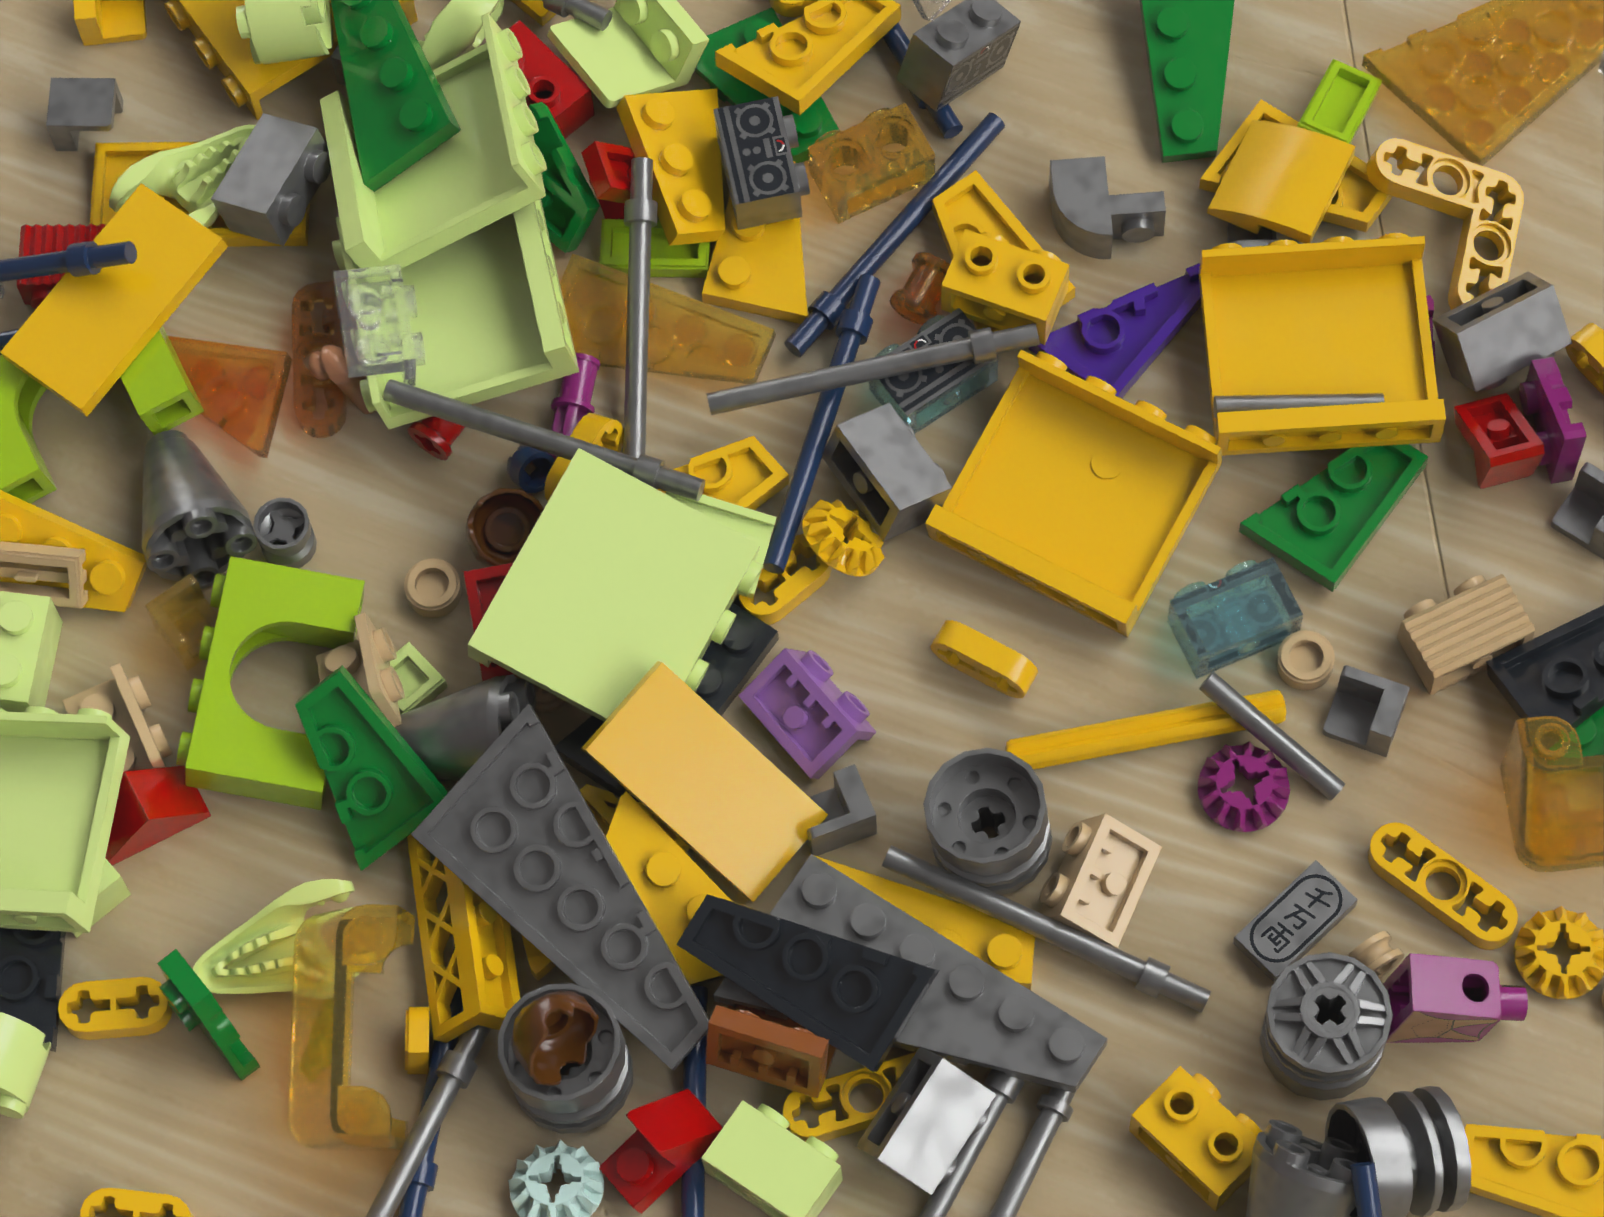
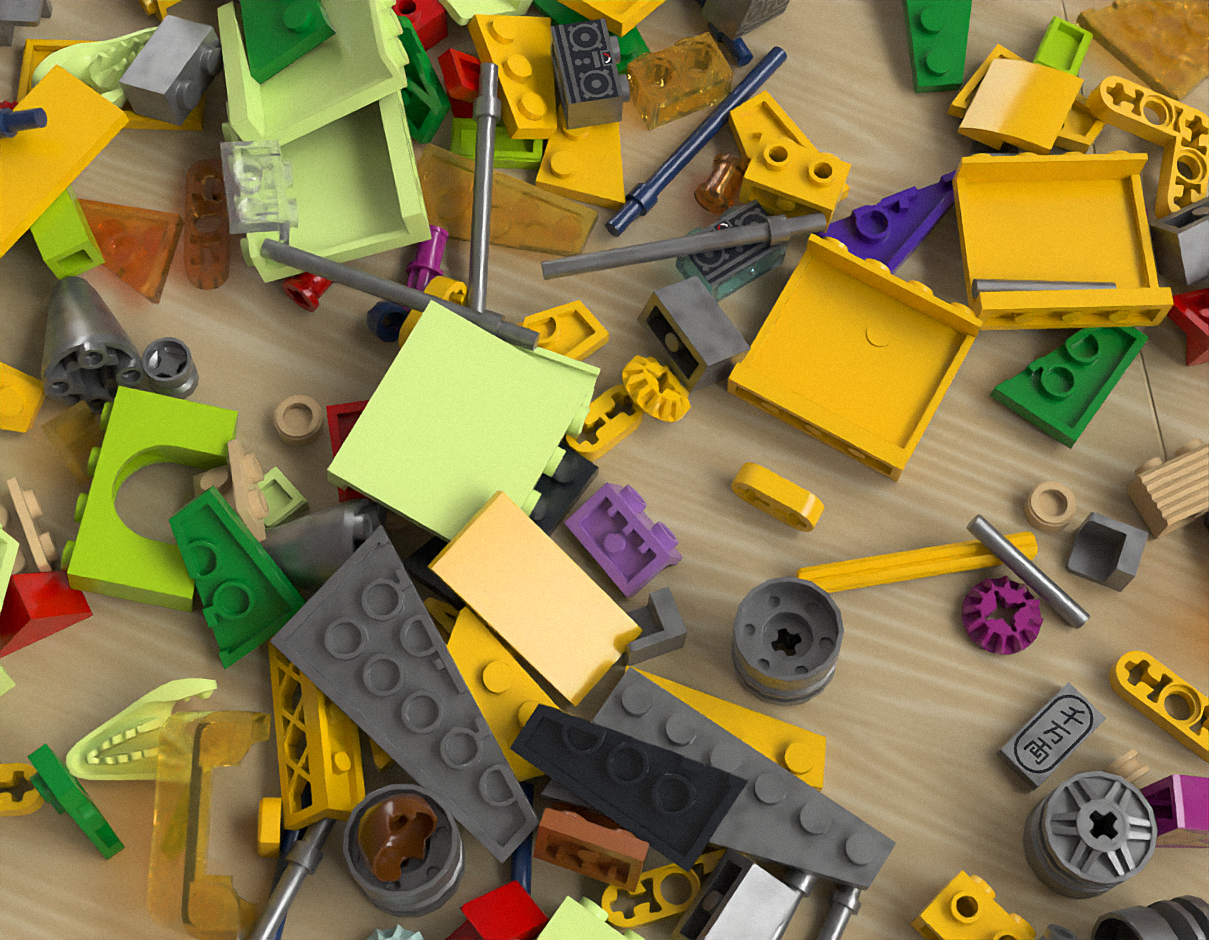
camera: 10 degrees left, 0 degrees up
(331, 364) = (216, 225): nougat arm -> none
(501, 525) = (360, 367): reddish brown hair -> none
(852, 332) = (663, 217): dark blue bar -> none
(1091, 217) = (861, 131): flat silver brick -> none
(1099, 878) = (880, 695): tan bracket -> none
(1150, 975) = (925, 782): flat silver bar -> none
(1233, 616) = (990, 466): clear light blue brick -> none

